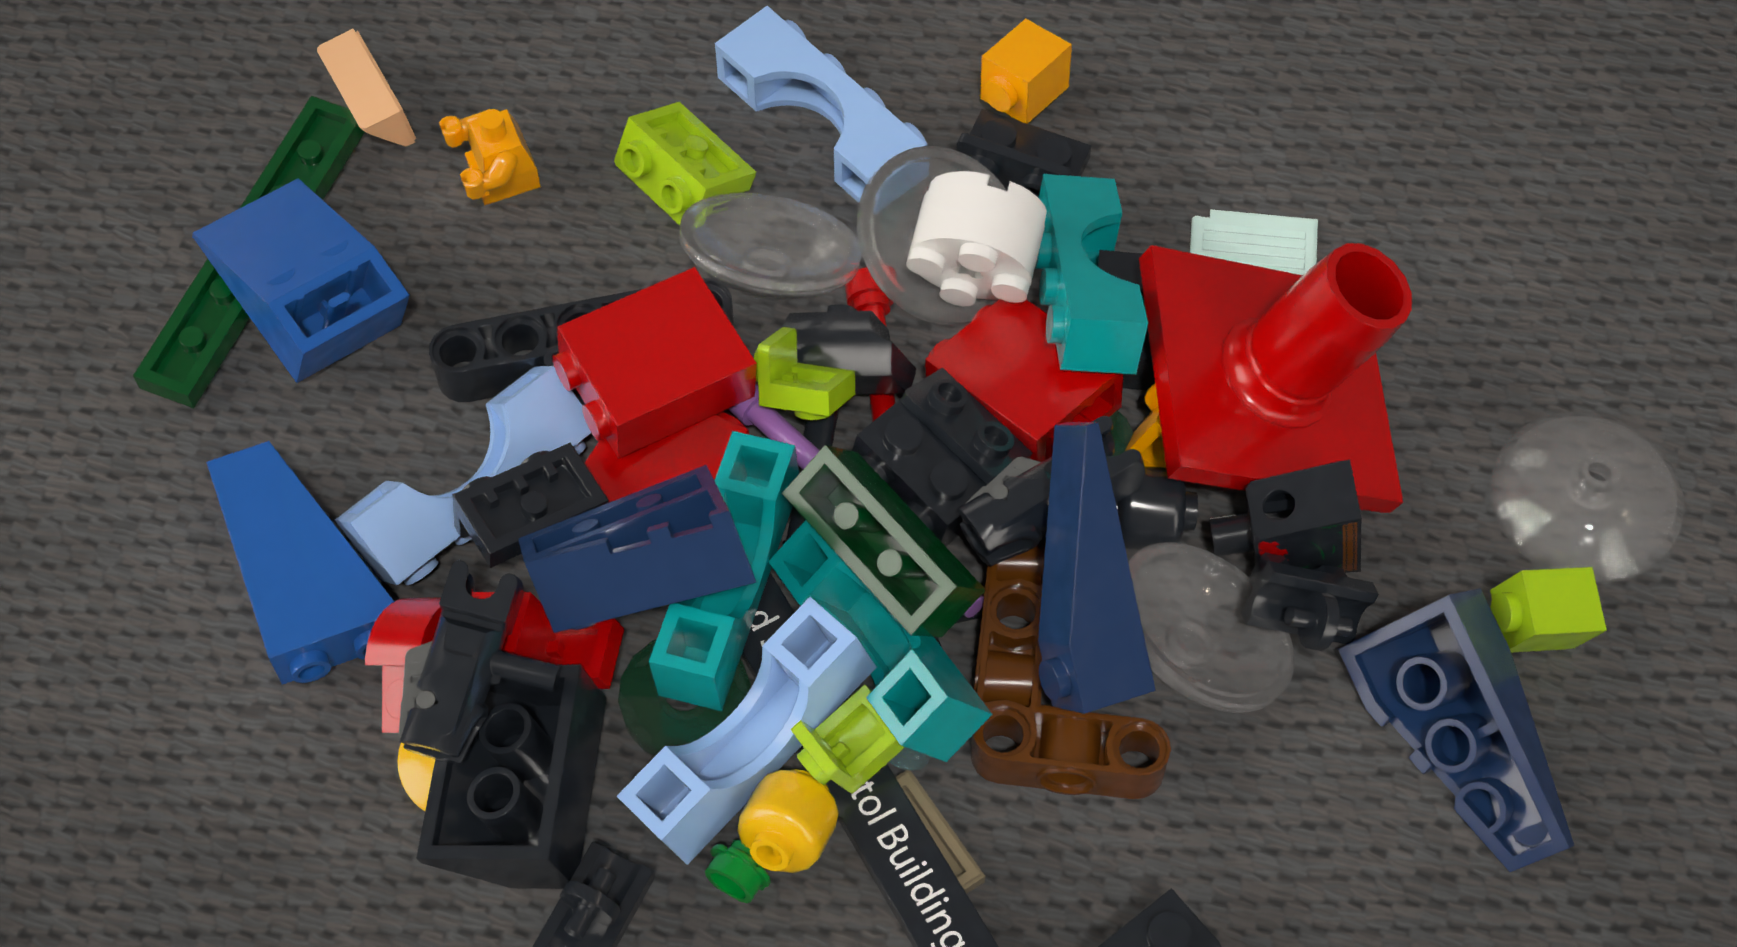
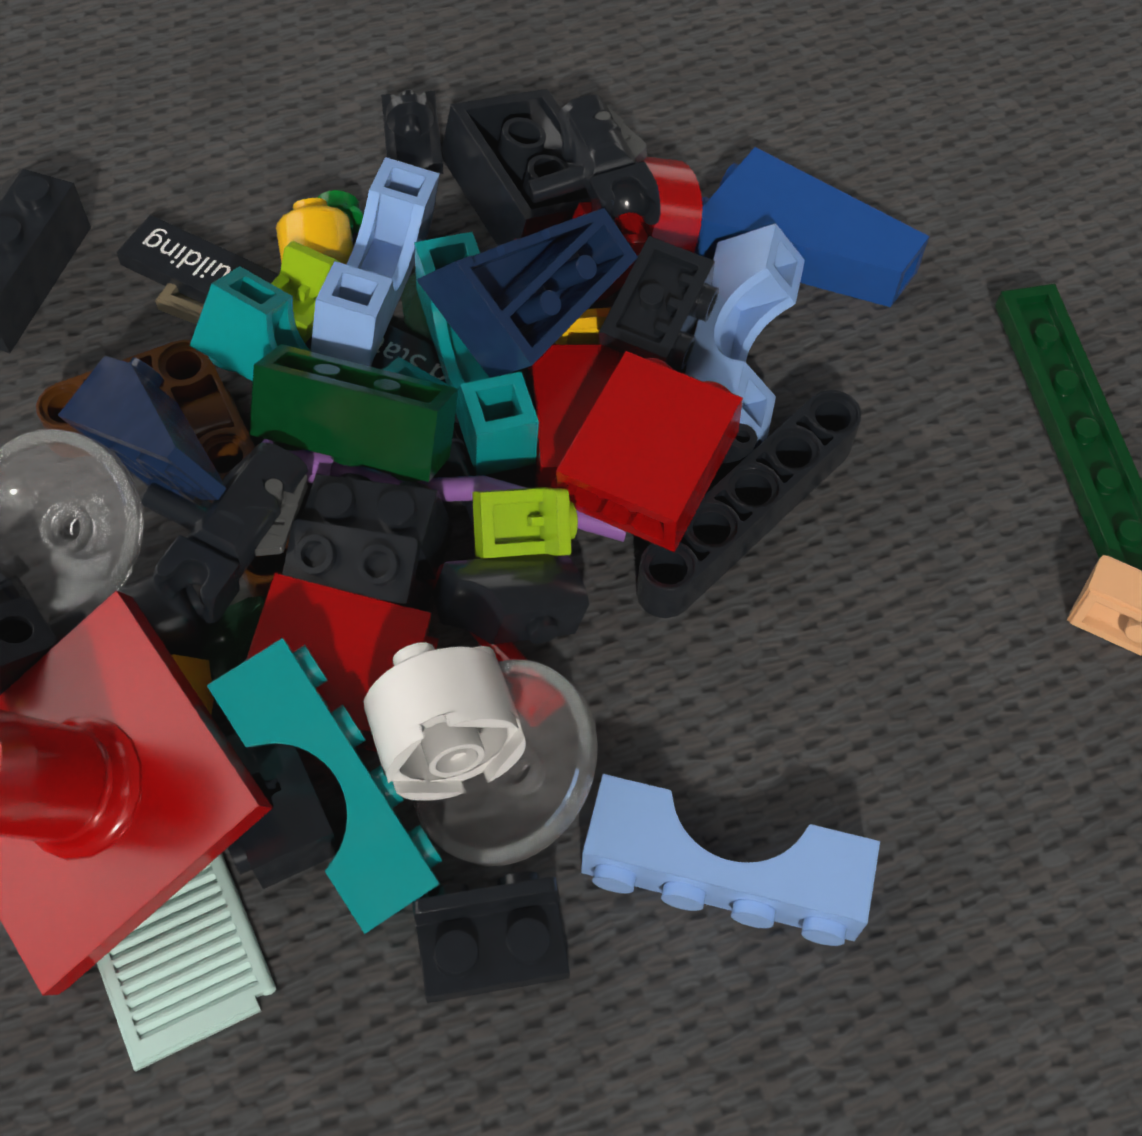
camera: 145 degrees right, 0 degrees up
(304, 277) = (1012, 400): blue slope -> none
(498, 155) = (977, 615): light orange piece -> none
(679, 159) = (812, 726): lime bracket -> none
(769, 246) = (701, 665): clear dish -> none
(1025, 71) = (546, 1028): light orange brick -> none

